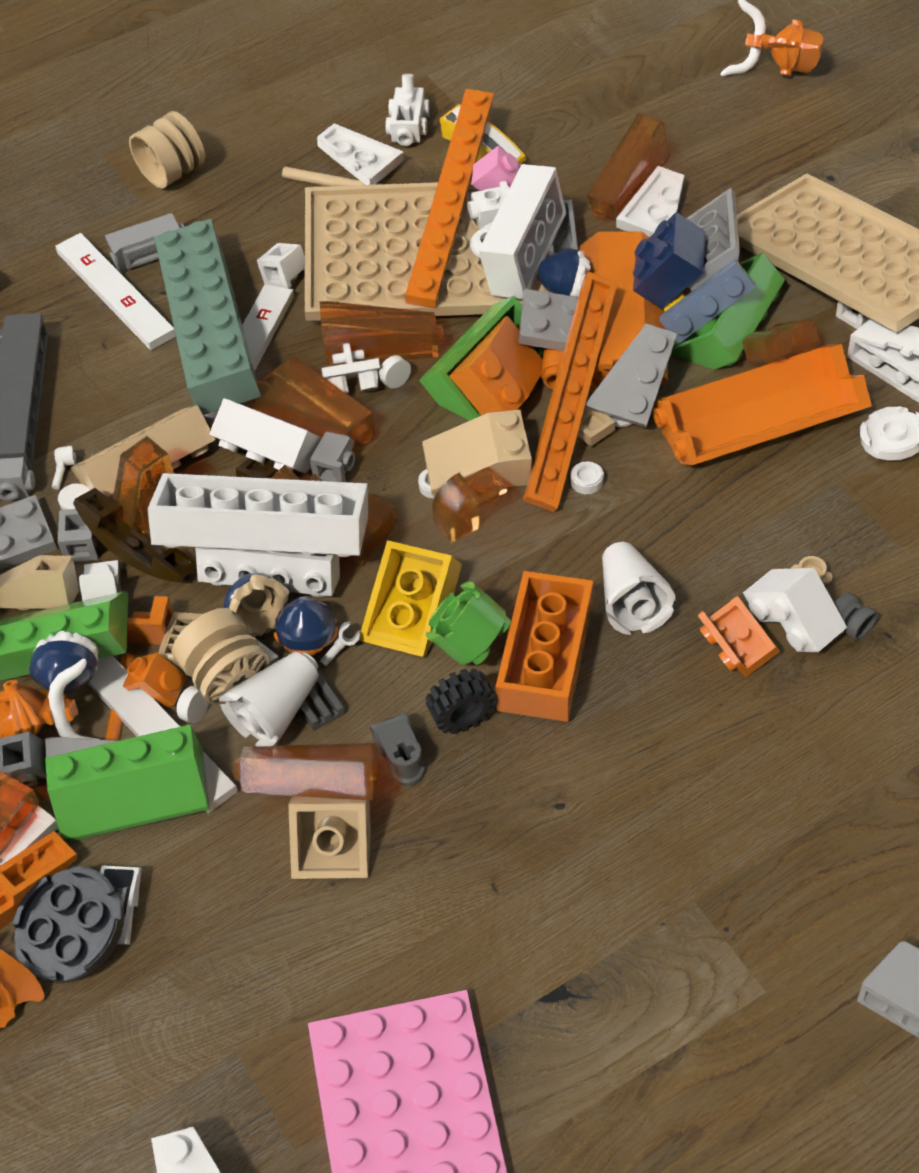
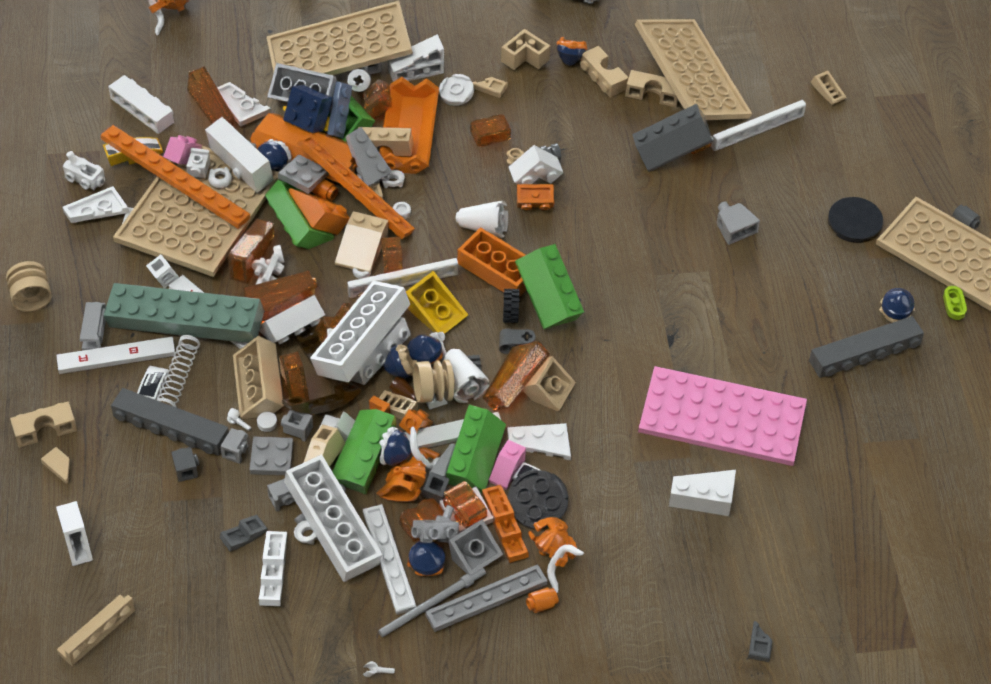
camera: 70 degrees left, 0 degrees up
(70, 346) = (152, 382): none -> slope
(128, 844) = (507, 464): none -> bright pink slope
(164, 339) = (188, 346): none -> white piece
(191, 705) = (440, 412): white tile -> none
(212, 879) = (542, 438): none -> white wing
(317, 178) = (101, 230): tan bar -> none
(333, 457) = (326, 300): light grey brick -> none
(444, 538) = (406, 276): none -> white tile
(467, 624) = (472, 284): bright green brick -> none
(525, 735) = (549, 287): none -> bright green slope
(573, 113) = (141, 104): none -> white brick
(652, 432) = (394, 174): none -> white piece
(710, 396) = (398, 139): none -> tan arch
(796, 300) = (362, 86): none -> white piece
(839, 512) = (490, 130): none -> clear orange brick

